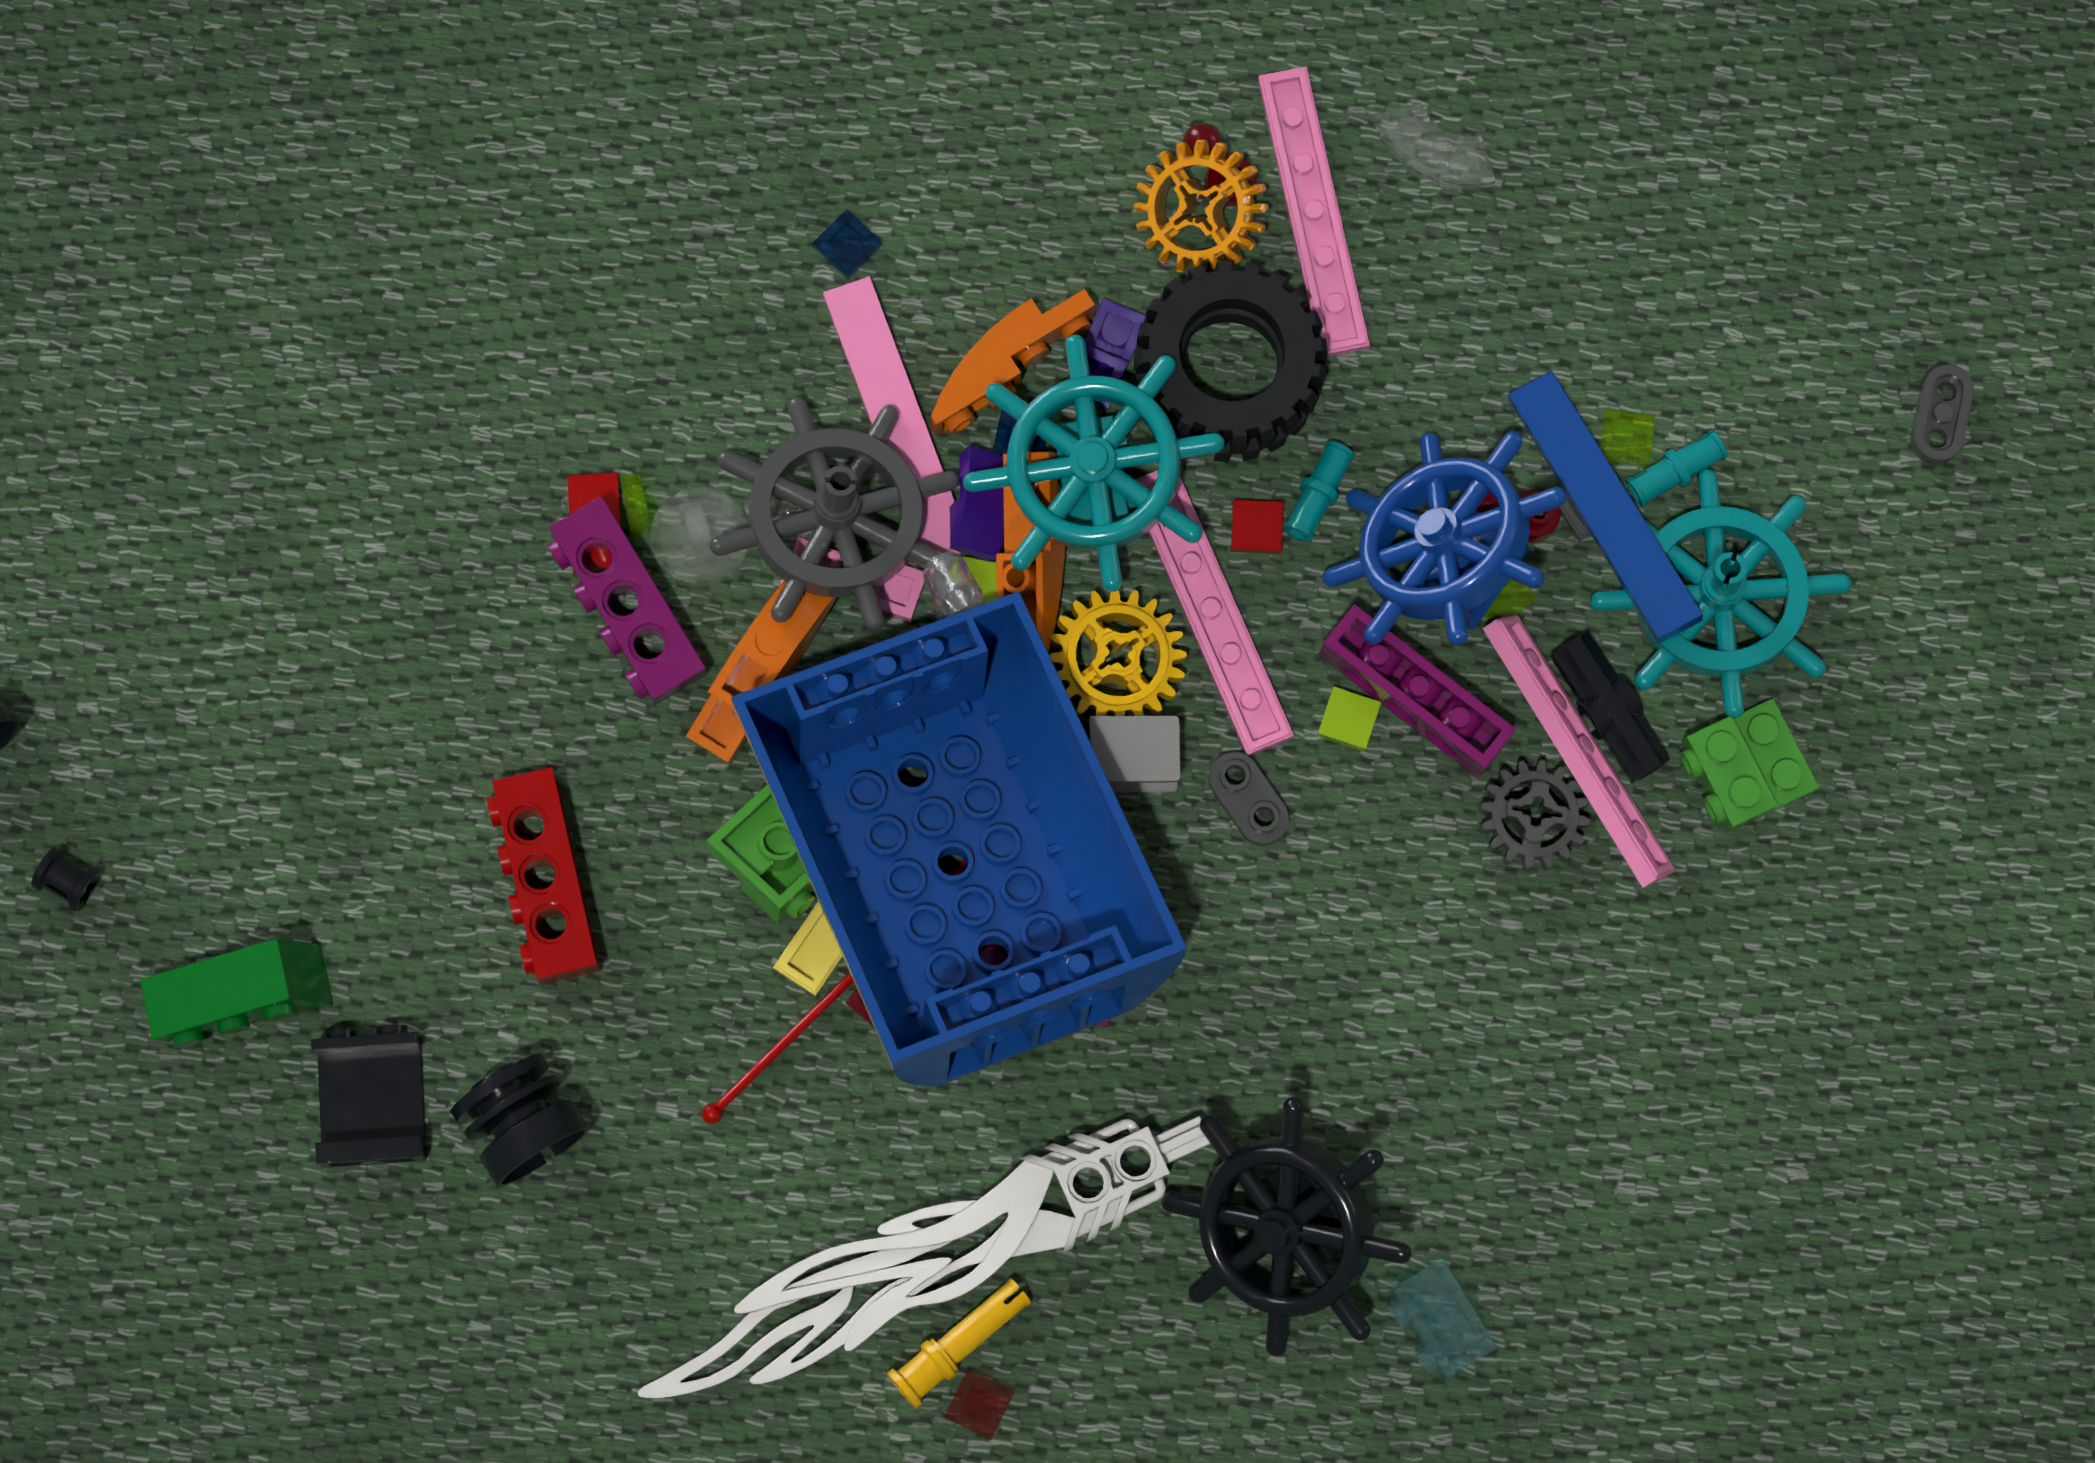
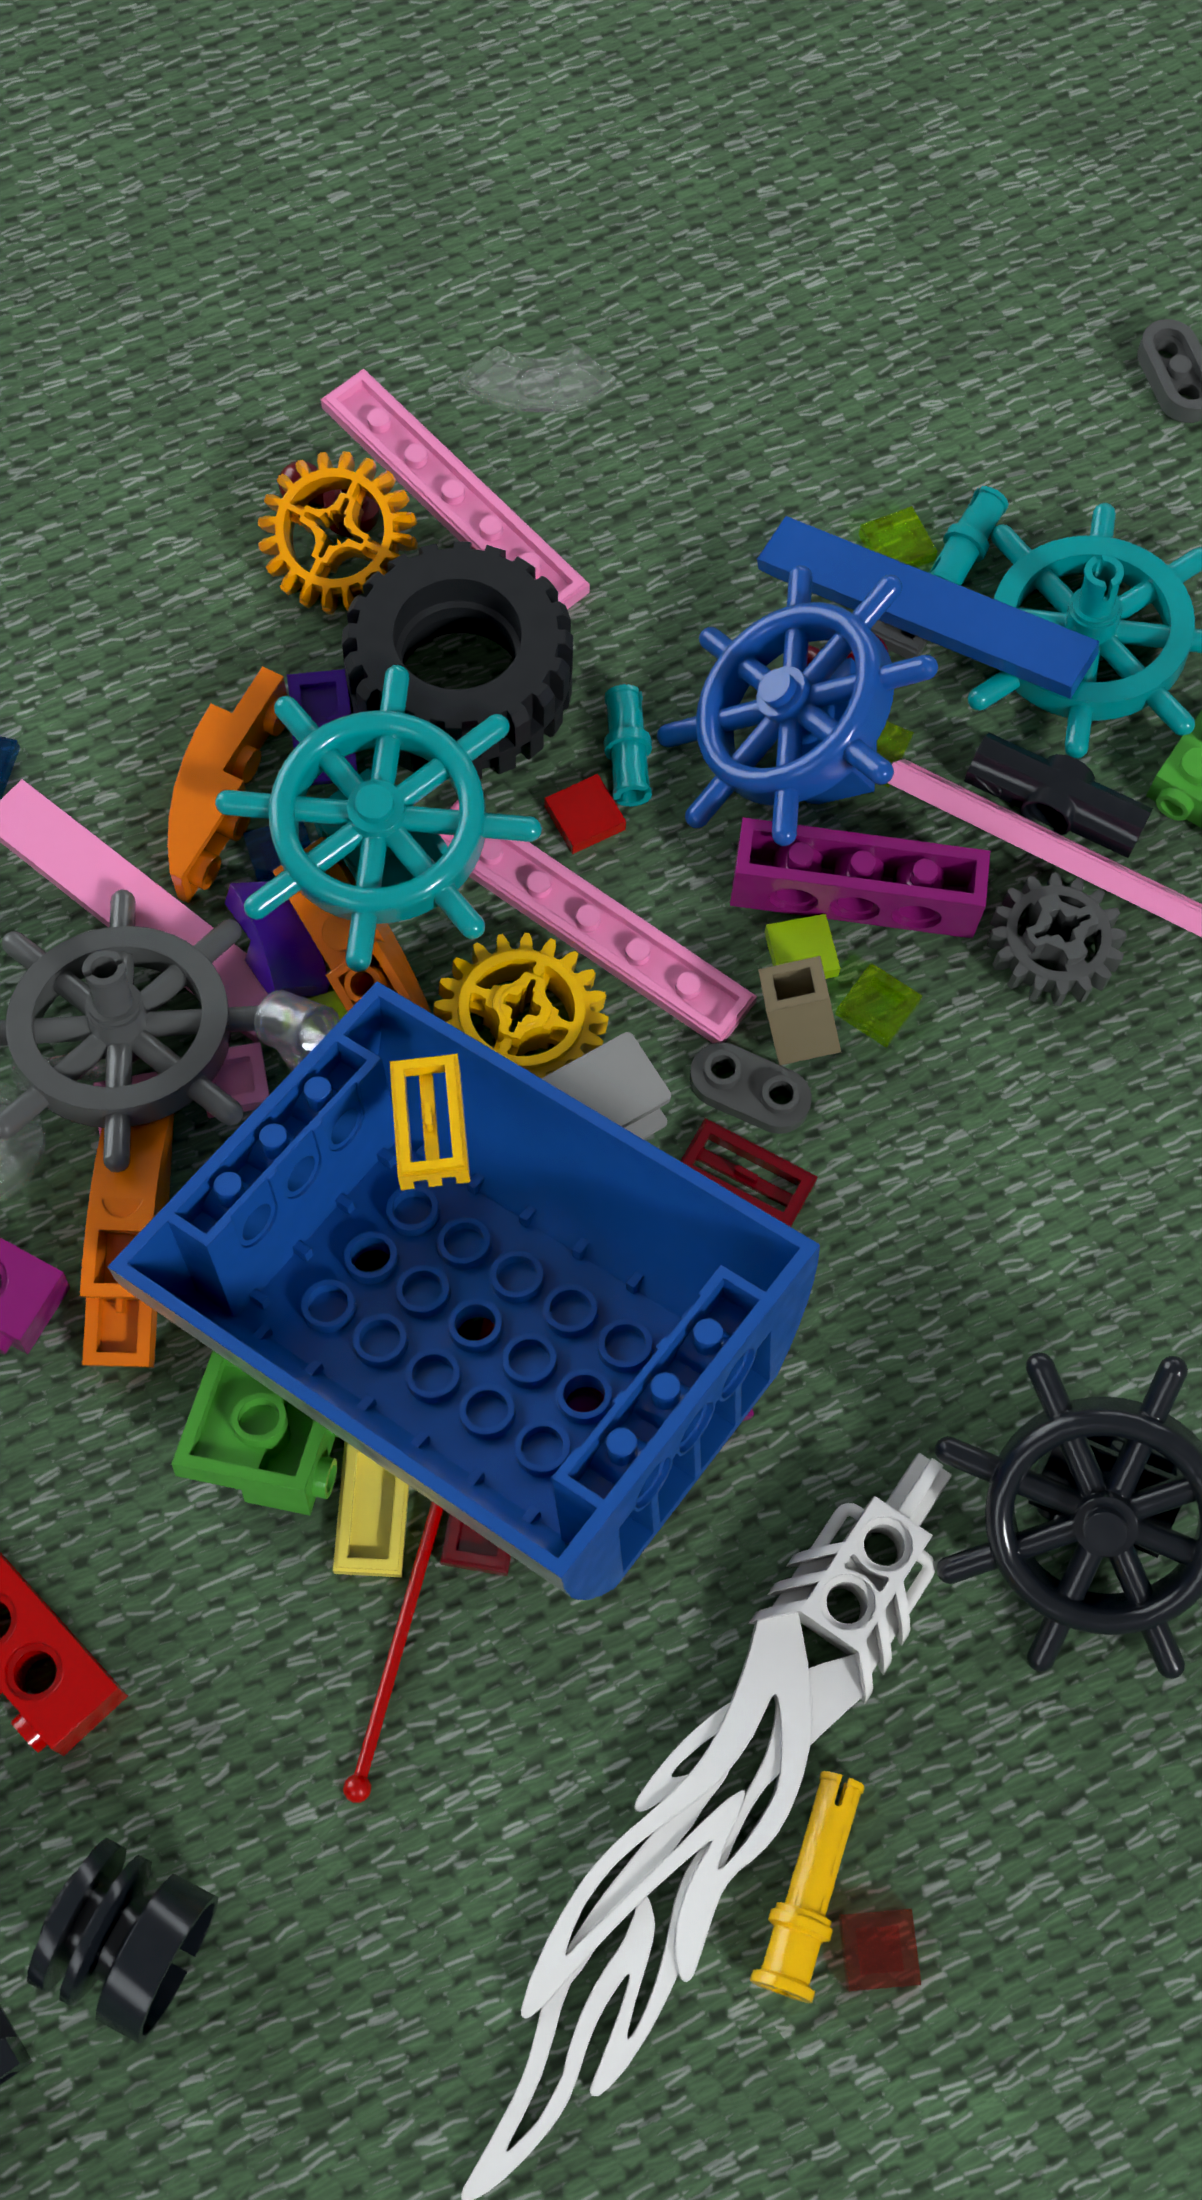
camera: 30 degrees left, 10 degrees down
(973, 753) = (433, 1168): none -> yellow tile
(1227, 897) = (760, 1157): none -> dark red tile
(1311, 766) = (799, 1010): none -> dark tan brick
(1378, 790) = (878, 1005): none -> clear neon green tile

